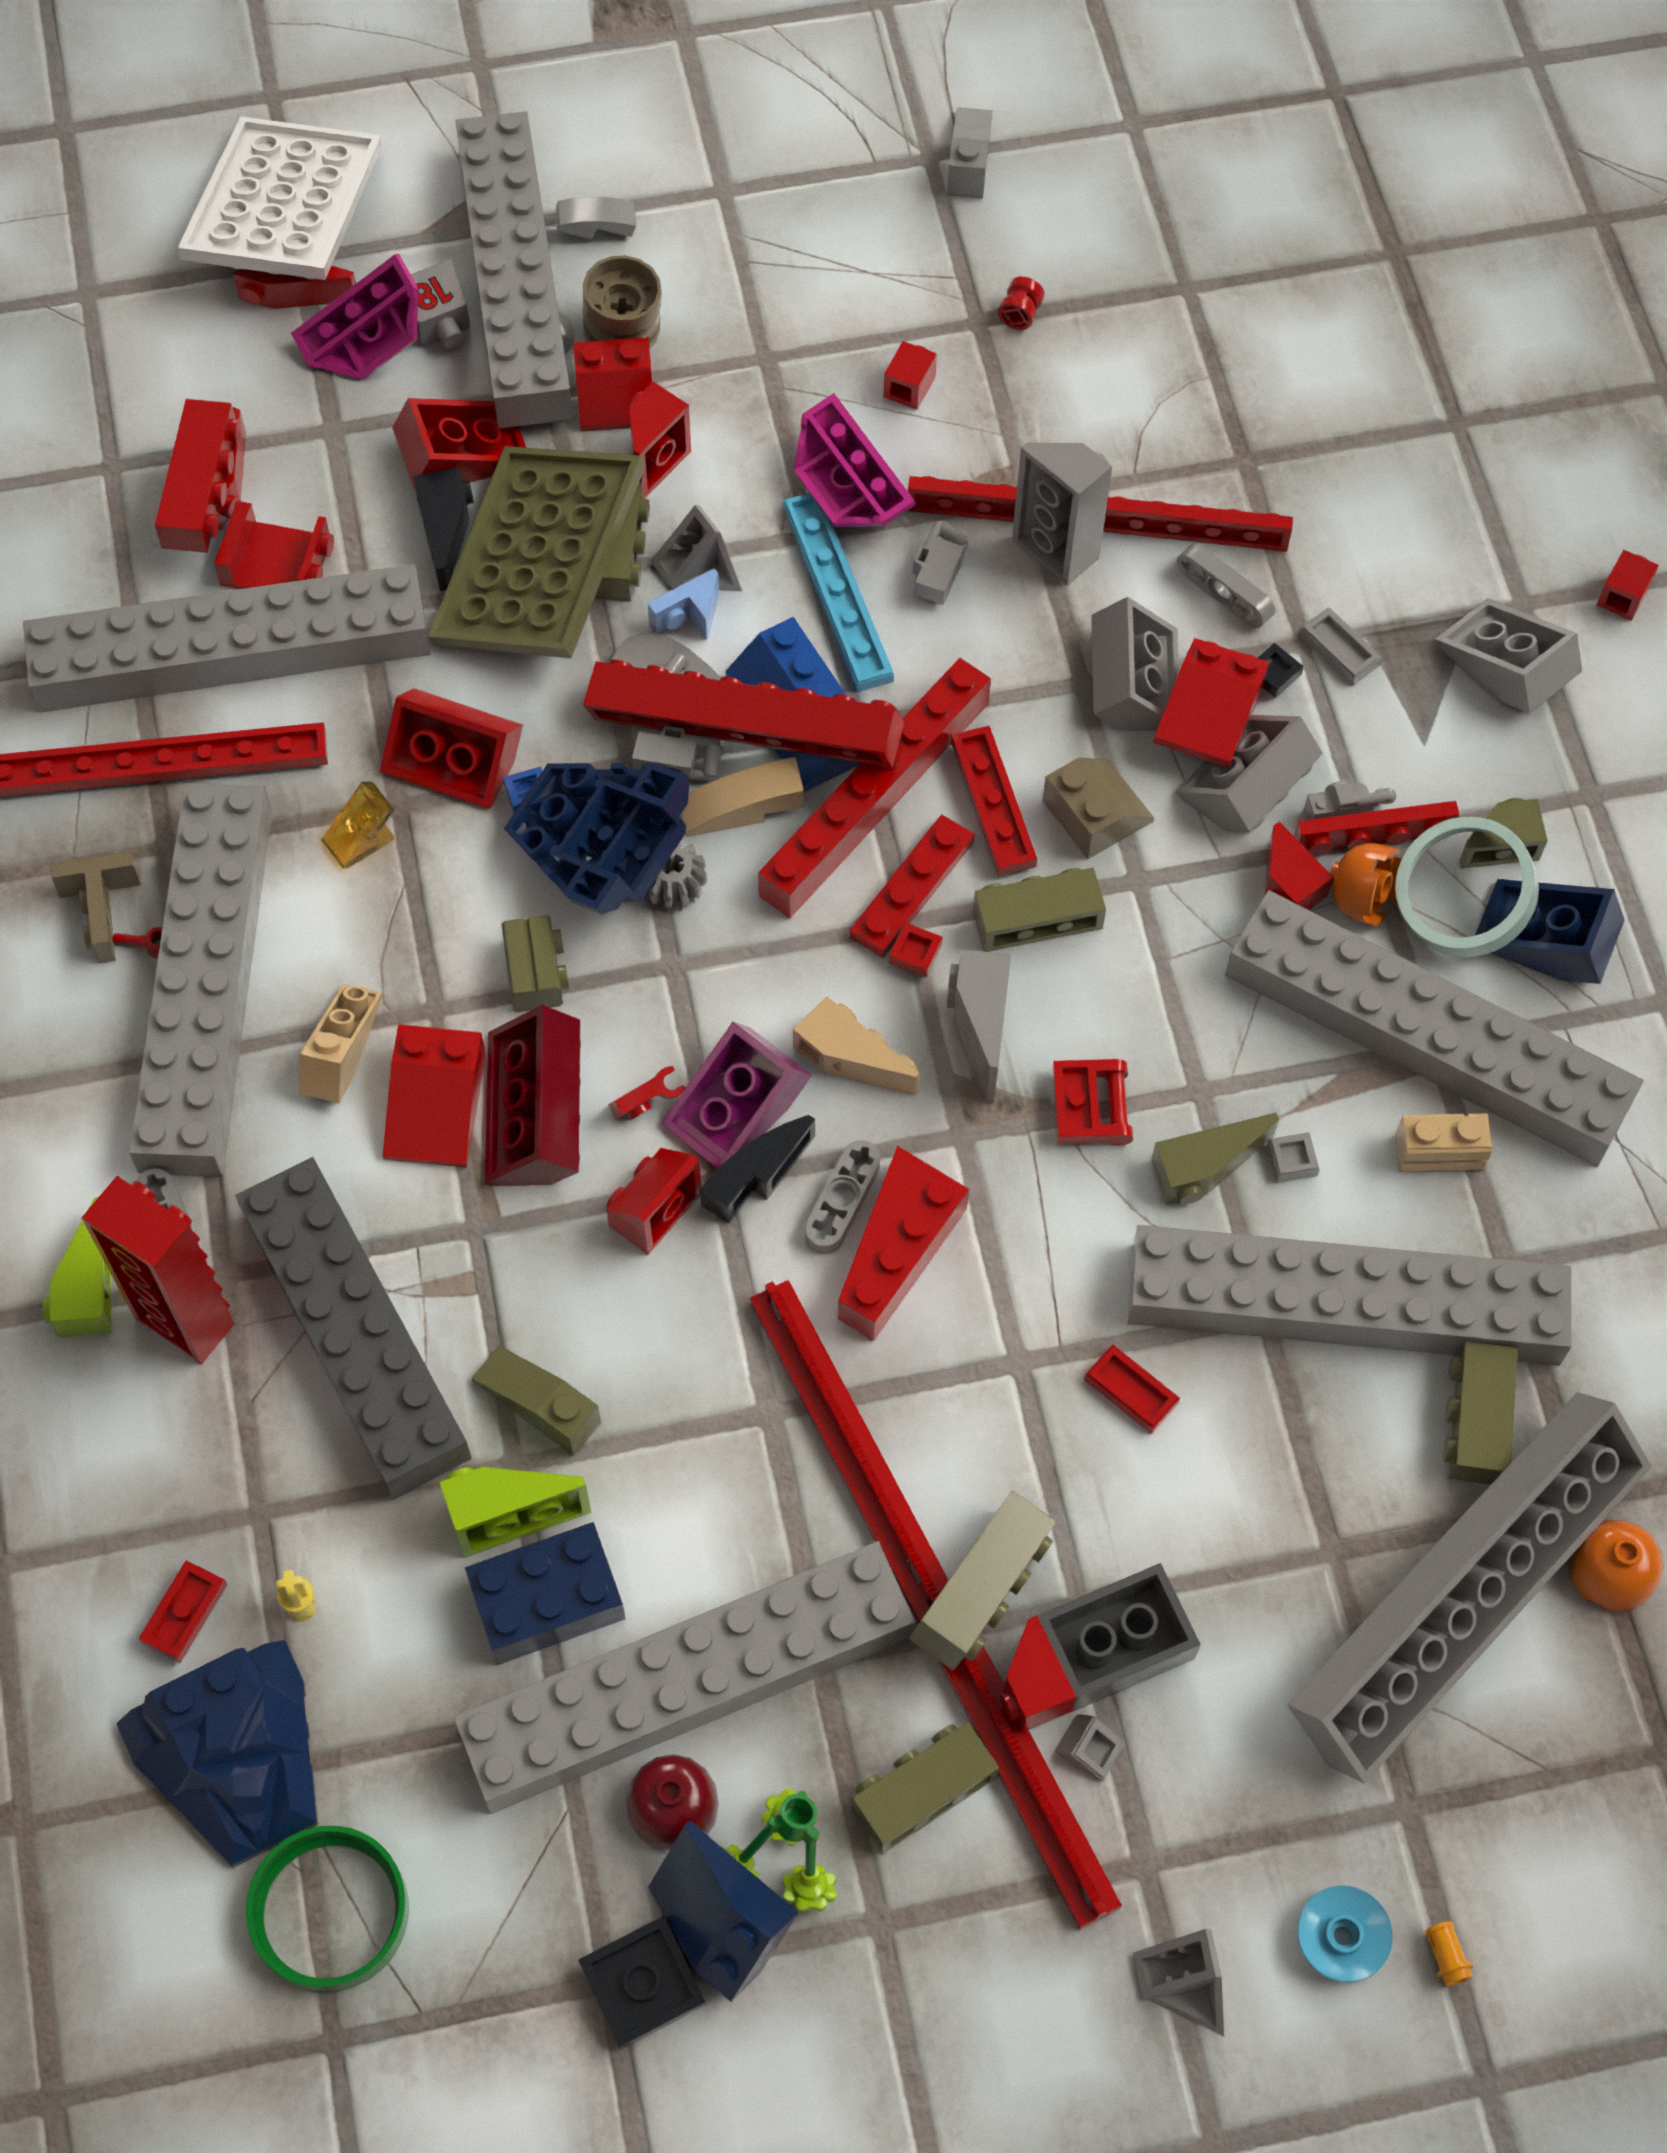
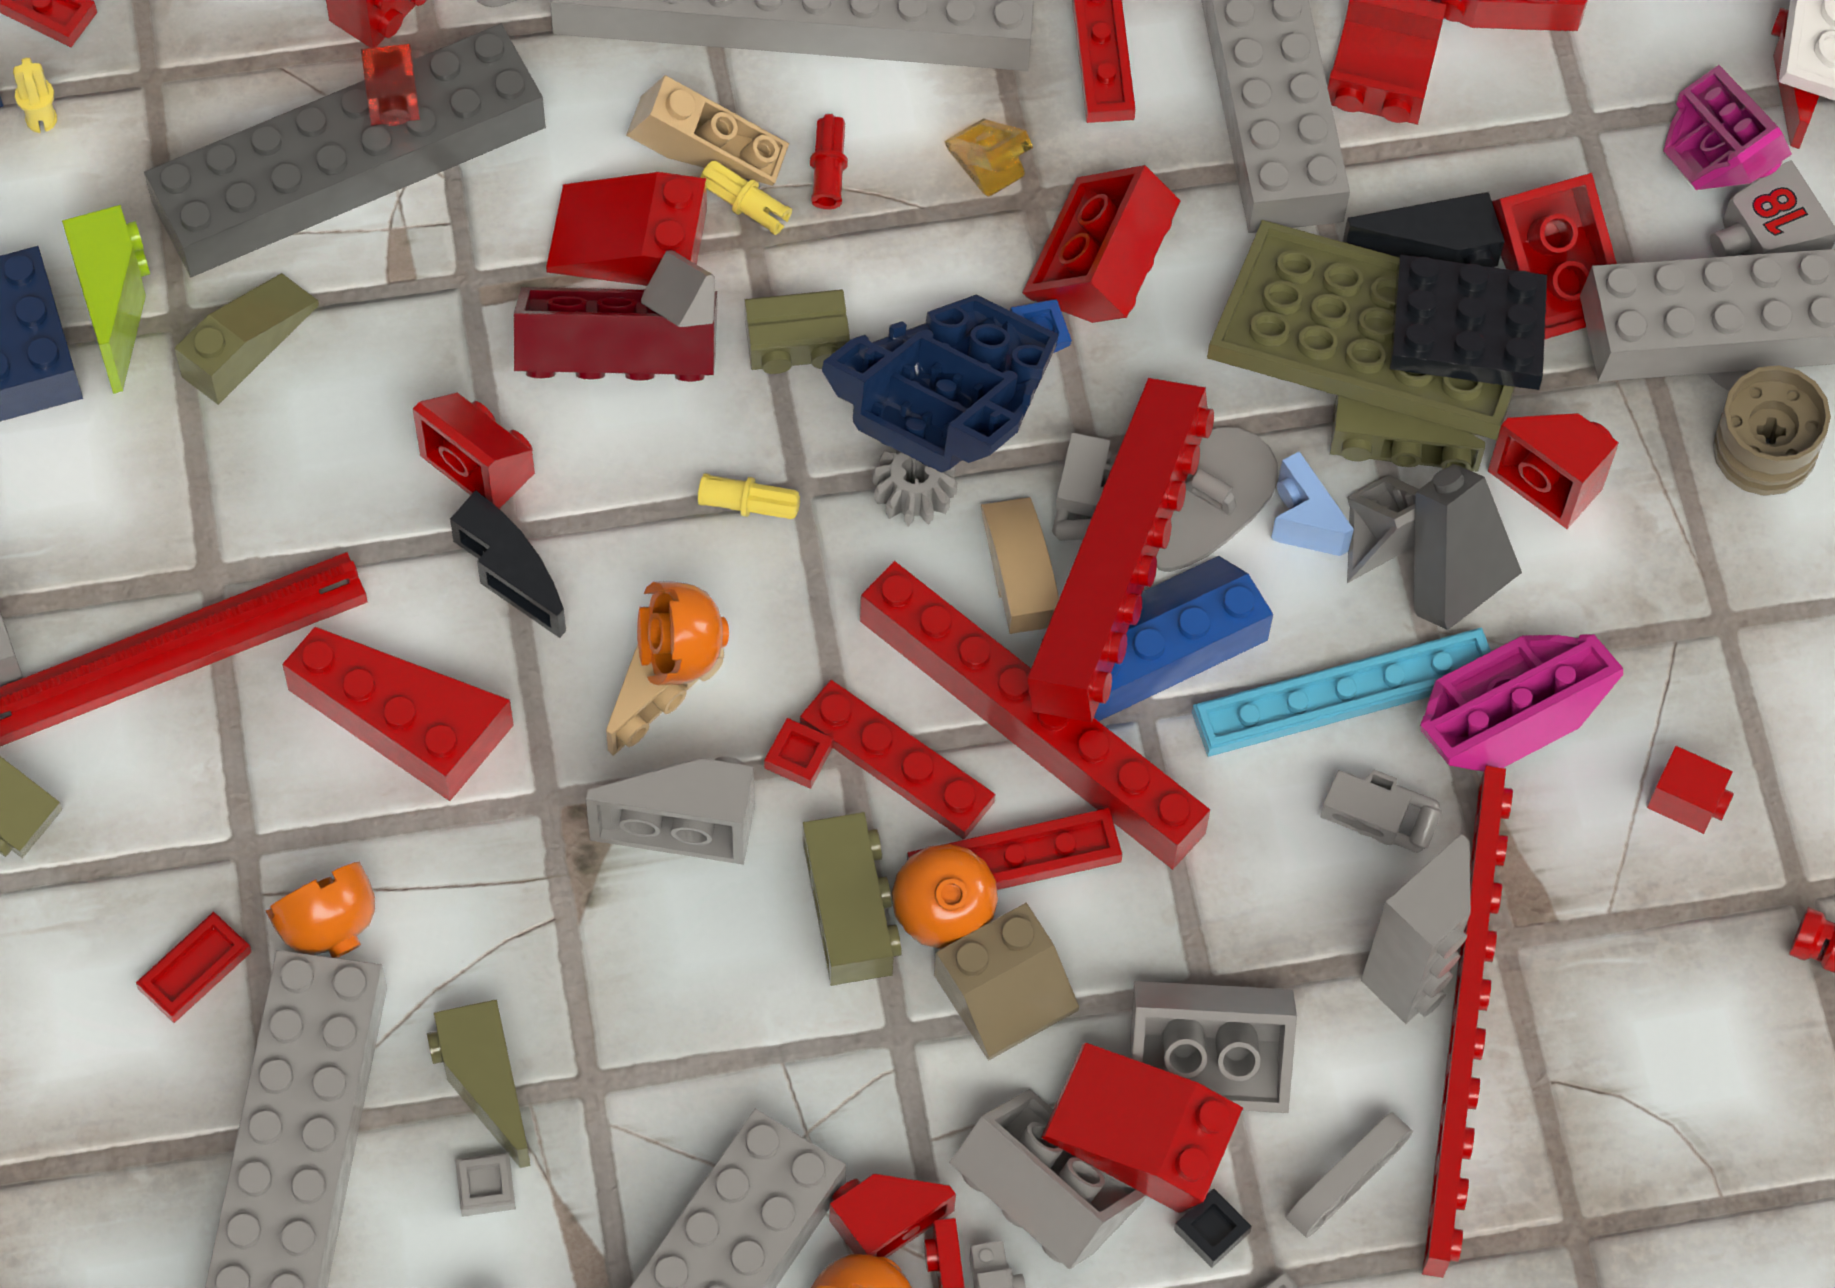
camera: 90 degrees right, 0 degrees up
(314, 1265) = (390, 84): none -> clear red brick
(364, 949) = (828, 162): none -> red axle
(399, 1010) = (745, 196): none -> light yellow axle
(519, 1028) = (681, 292): none -> light grey slope
(537, 484) = (1469, 322): none -> black plate
(608, 379) = (1659, 429): red slope -> none
(636, 1101) = (609, 437): red plate -> none
(687, 996) = (748, 497): none -> light yellow axle
(731, 499) = (1458, 547): none -> dark grey slope
(735, 1095) = (609, 544): magenta slope -> none
(842, 1014) = (680, 633): none -> orange cylinder
(842, 1178) = (432, 655): light grey beam -> none
(1039, 834) = (944, 895): none -> orange cylinder
(1078, 1101) = (575, 928): red plate -> none
(1086, 1278) = (326, 913): none -> orange cylinder

